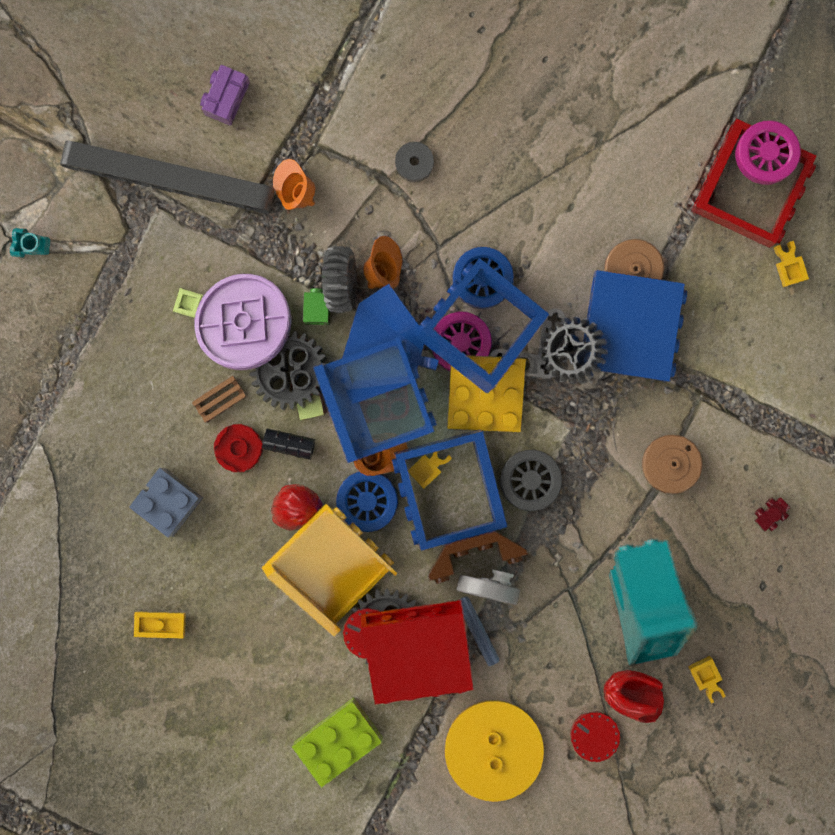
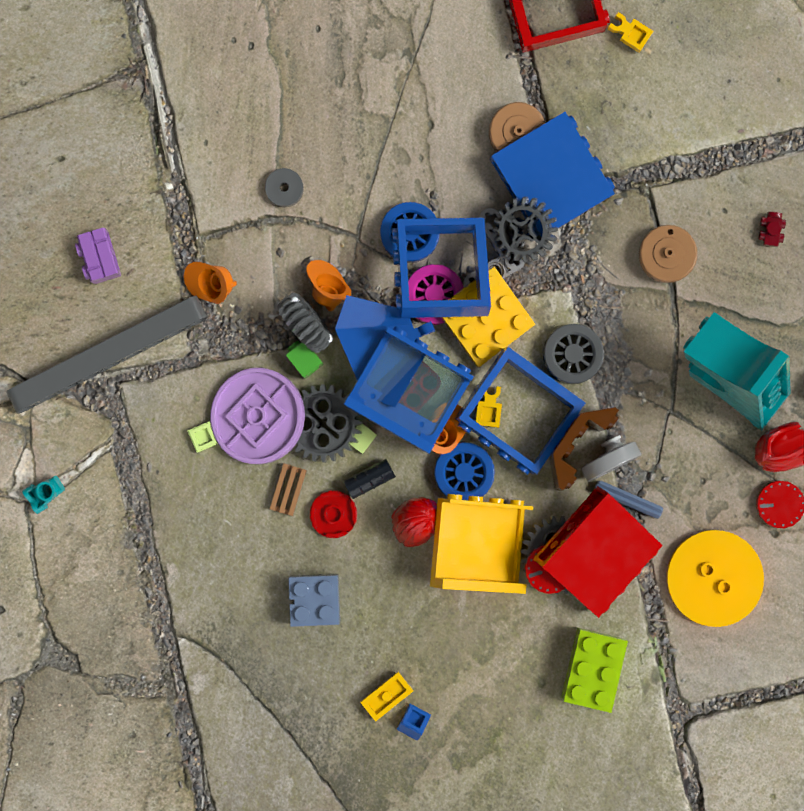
camera: 45 degrees left, 0 degrees up
(164, 662) = (413, 722): none -> blue slope

